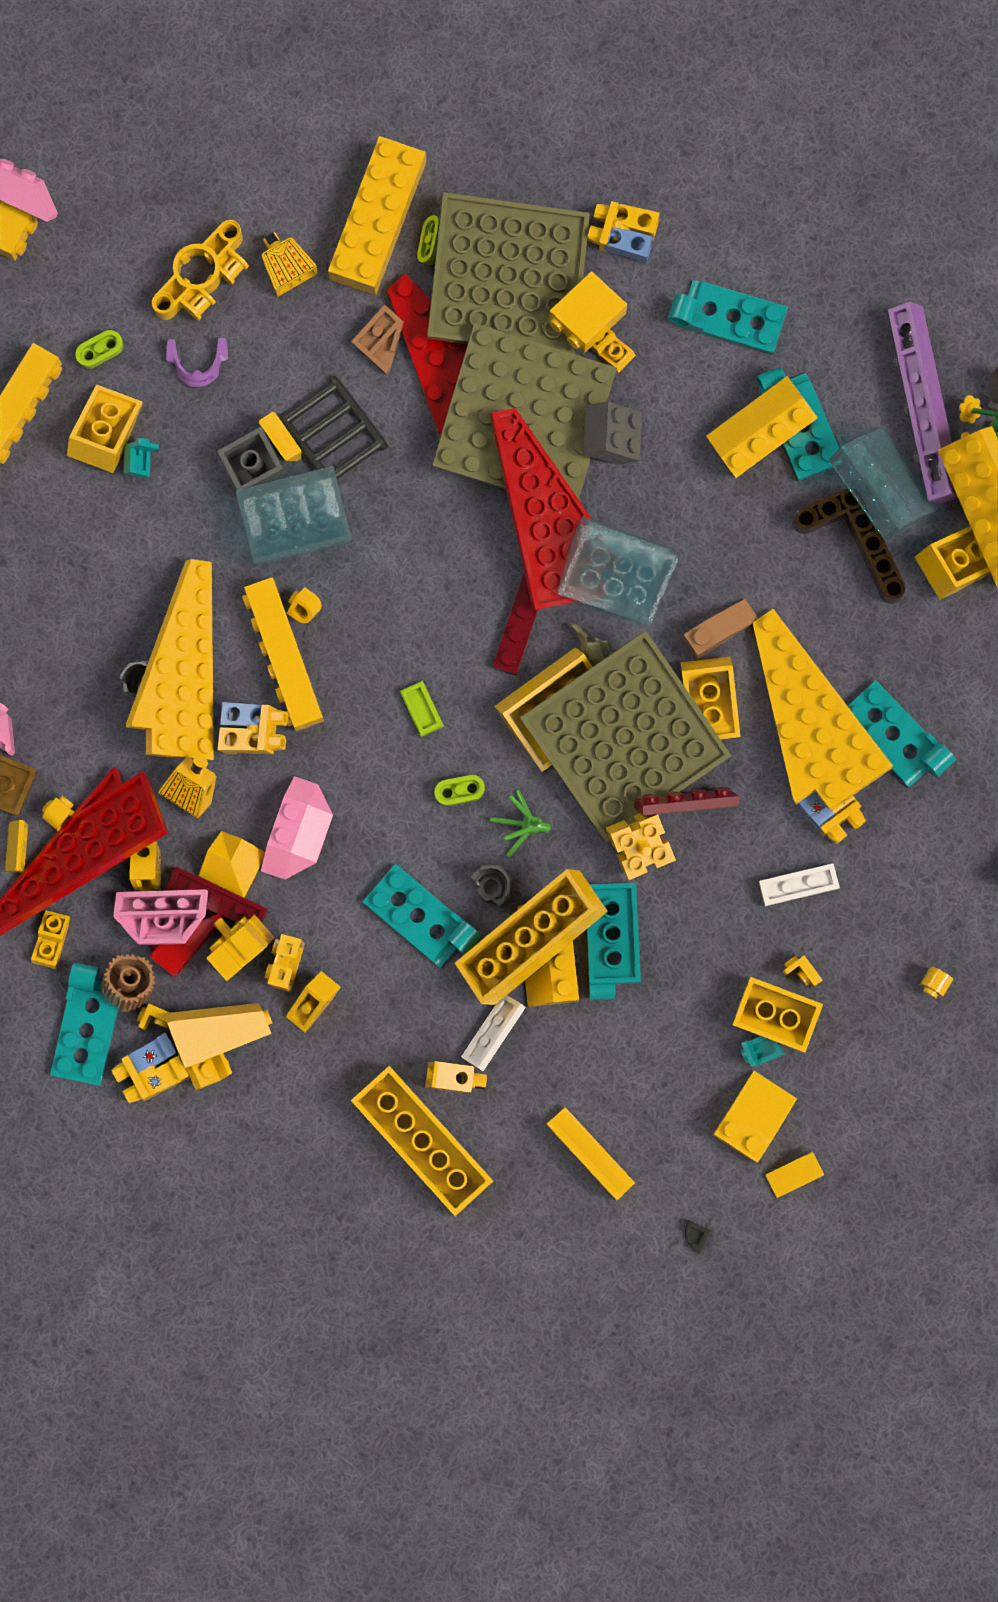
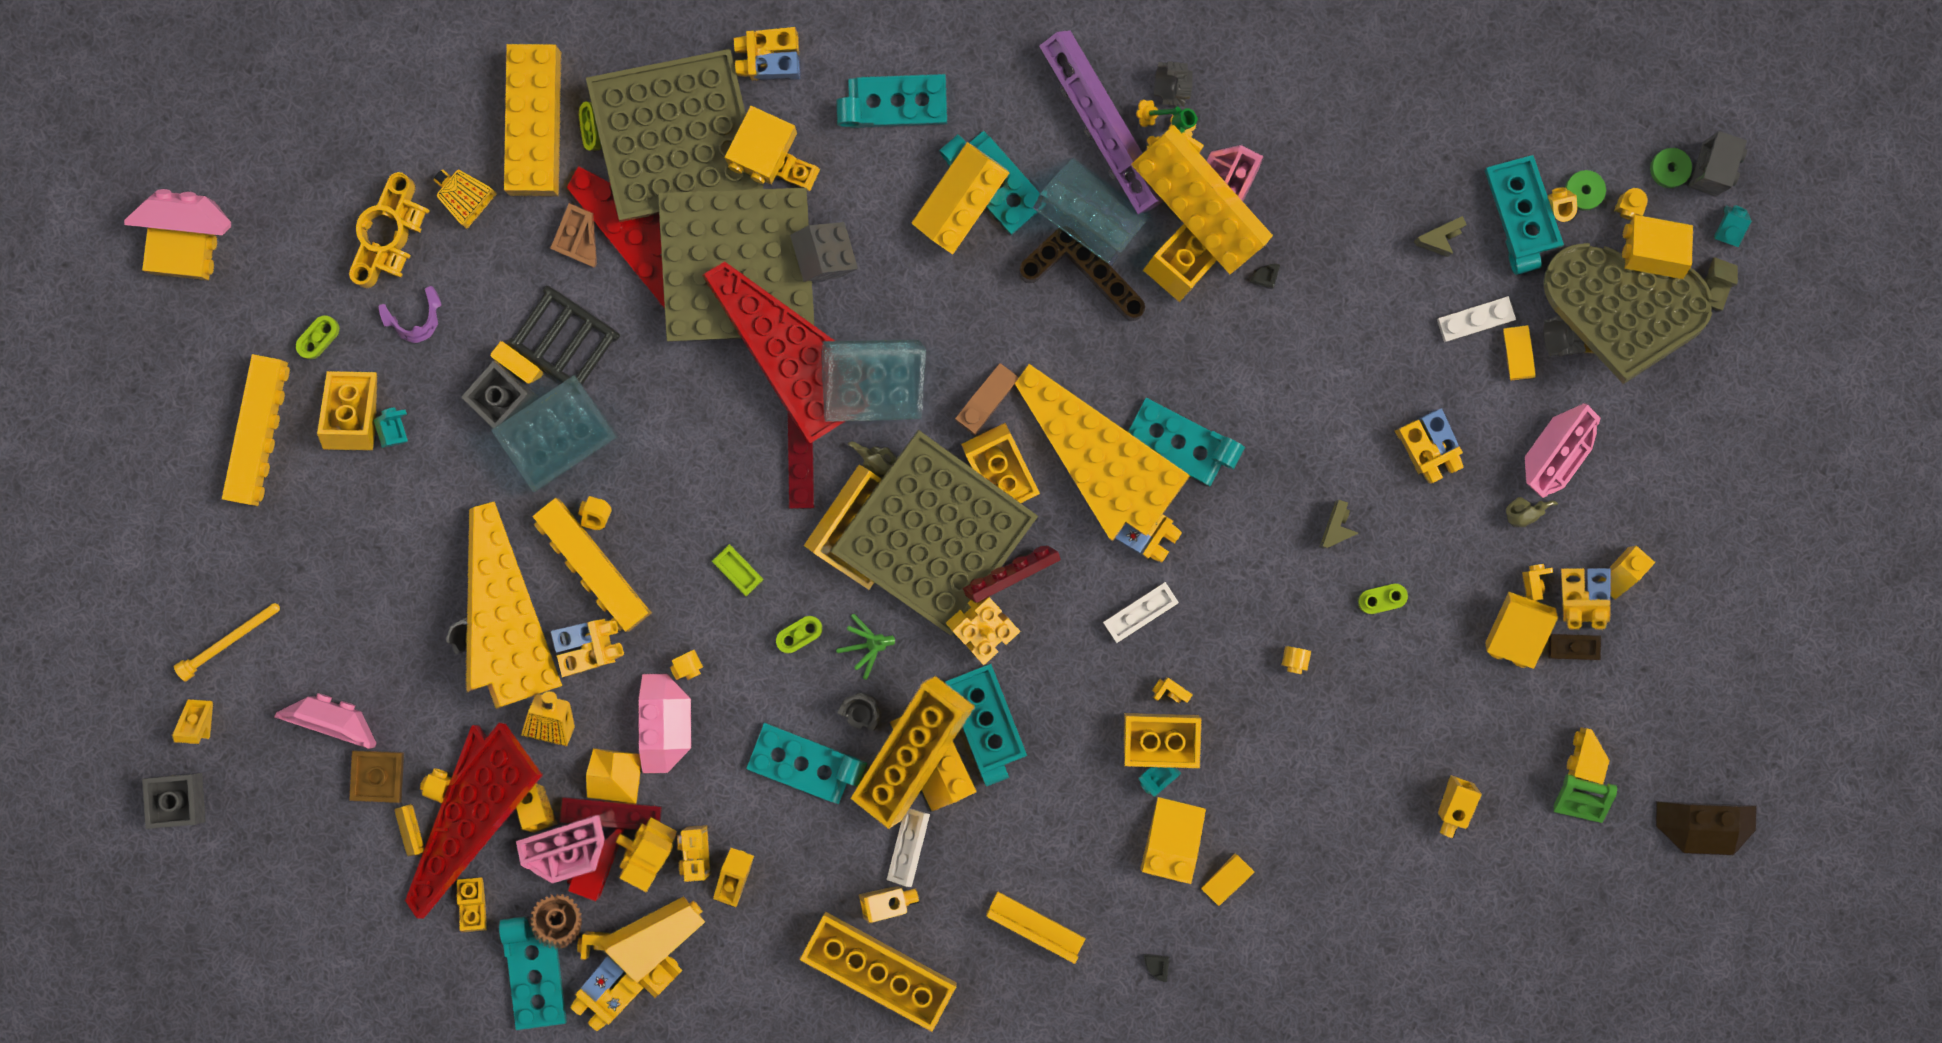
camera: 20 degrees left, 5 degrees up
(340, 782) = (686, 665): none -> yellow plate

